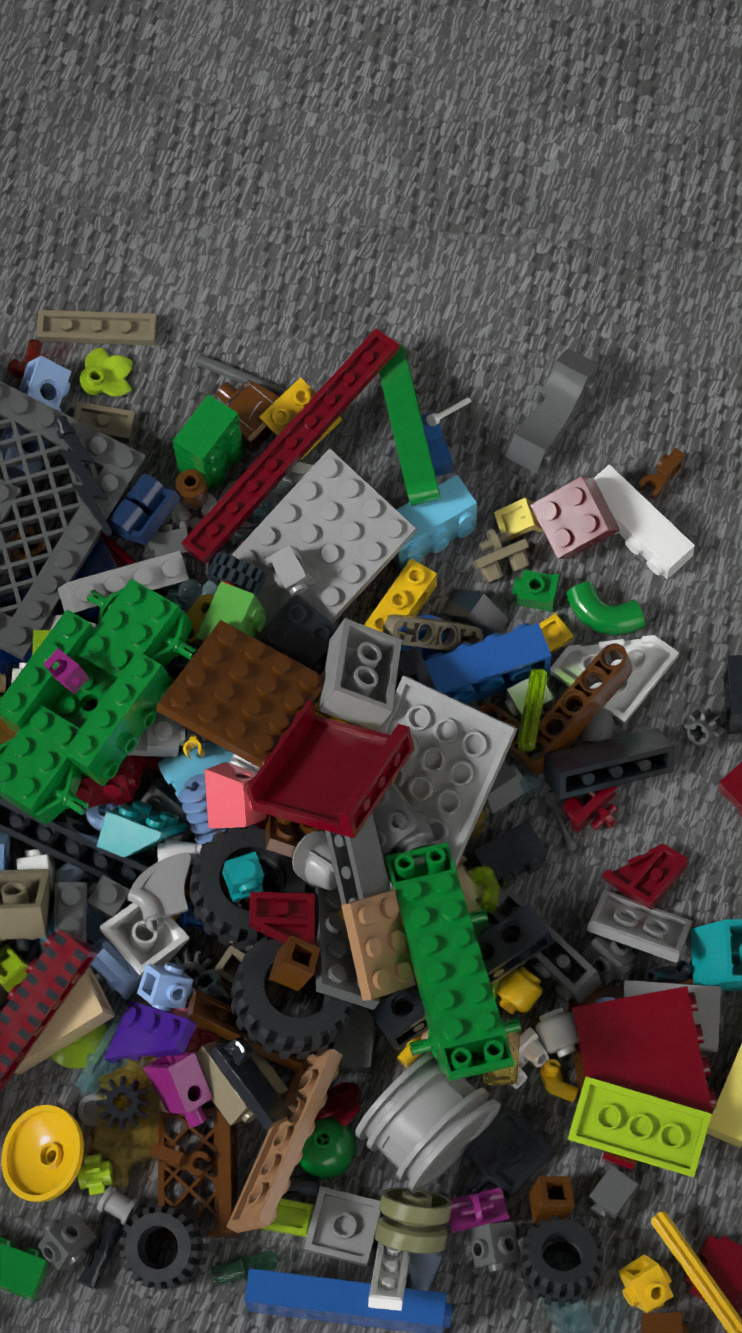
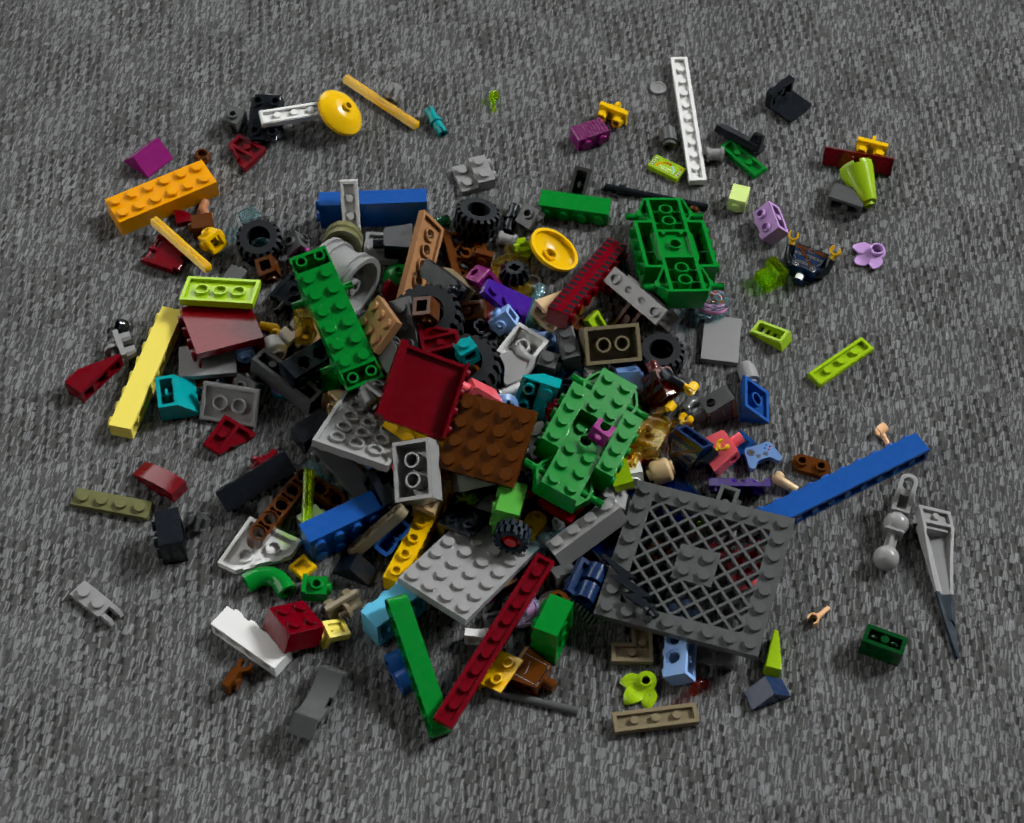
camera: 165 degrees right, 15 degrees down
(290, 570) = (478, 546): light grey brick -> none
(316, 1208) = (395, 241): none -> black torso
(434, 419) = (401, 677): white piece -> none
(491, 887) = (321, 401): clear neon green arm -> none

